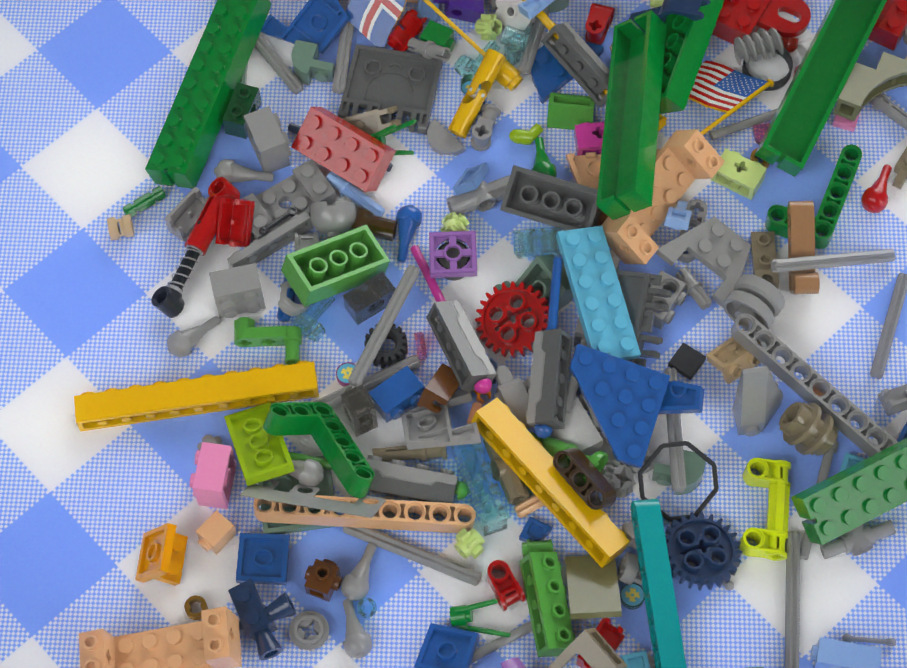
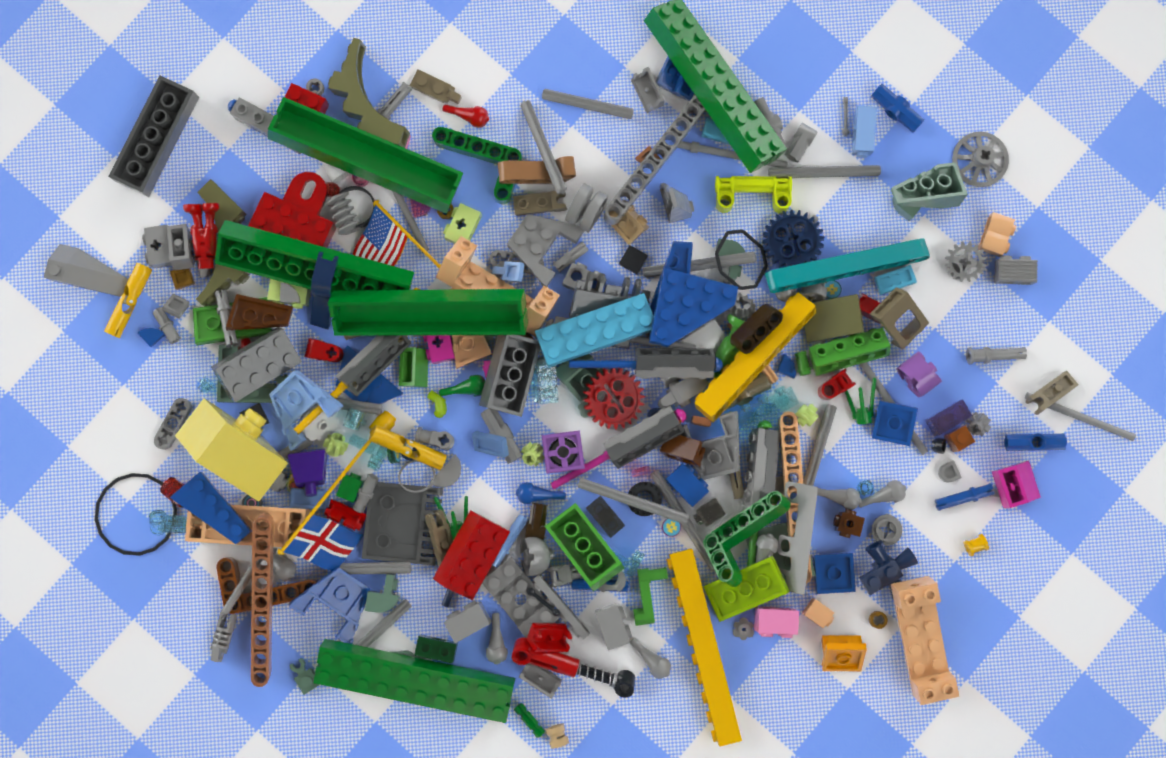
camera: 100 degrees left, 20 degrees up
(425, 107) = (412, 491): none -> light grey piece
(808, 428) = (689, 162): dark tan piece -> none
(840, 579) = (802, 139): none -> light grey piece

